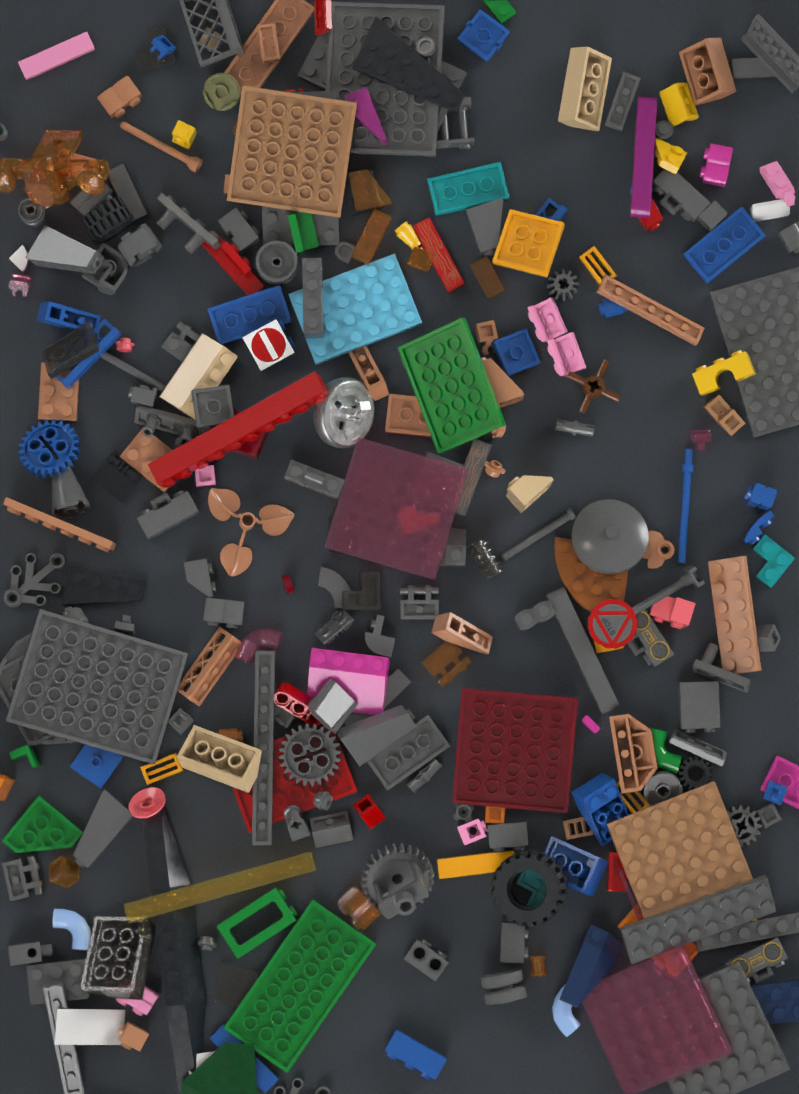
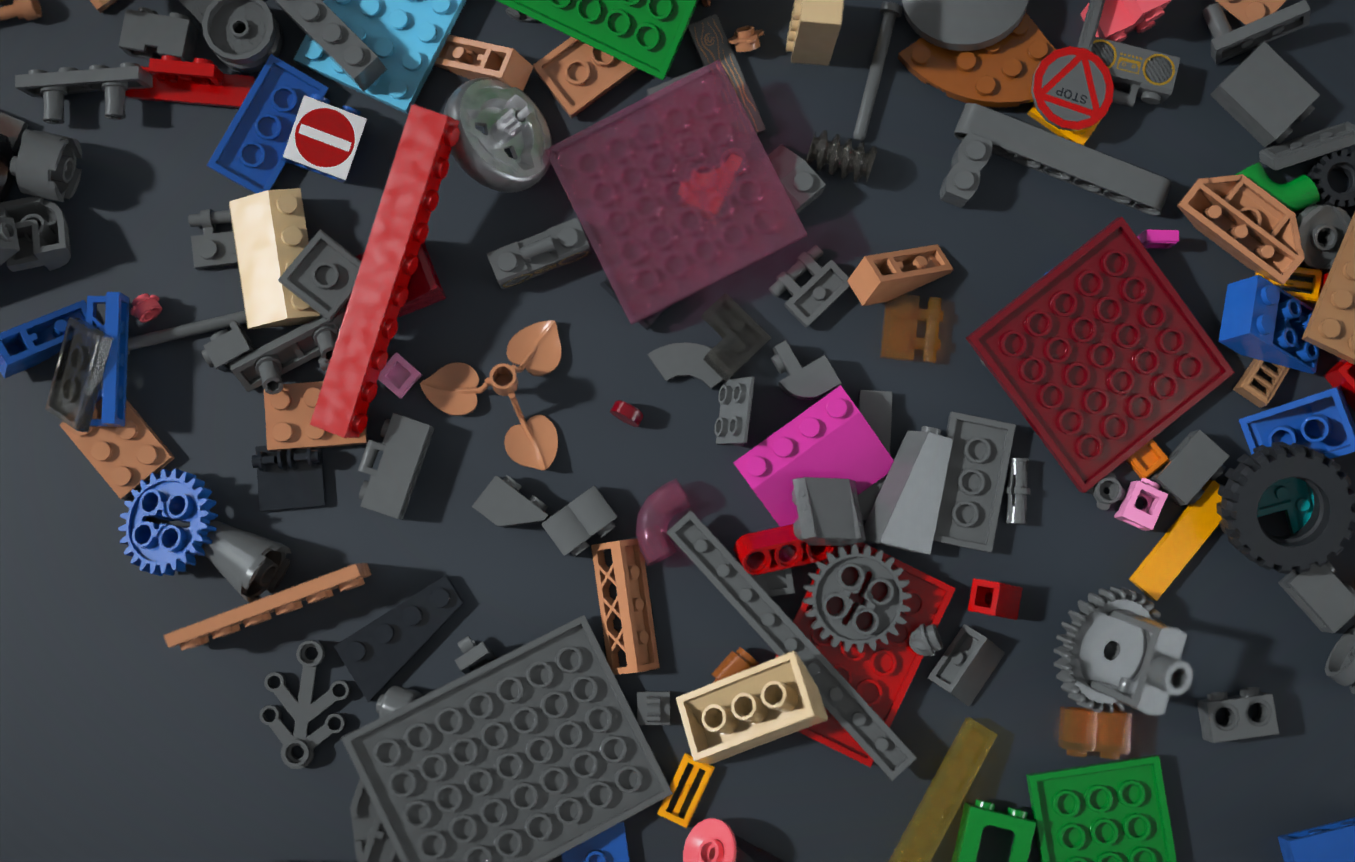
camera: 45 degrees left, 0 degrees up
(296, 823) = (918, 700): dark grey piece -> none

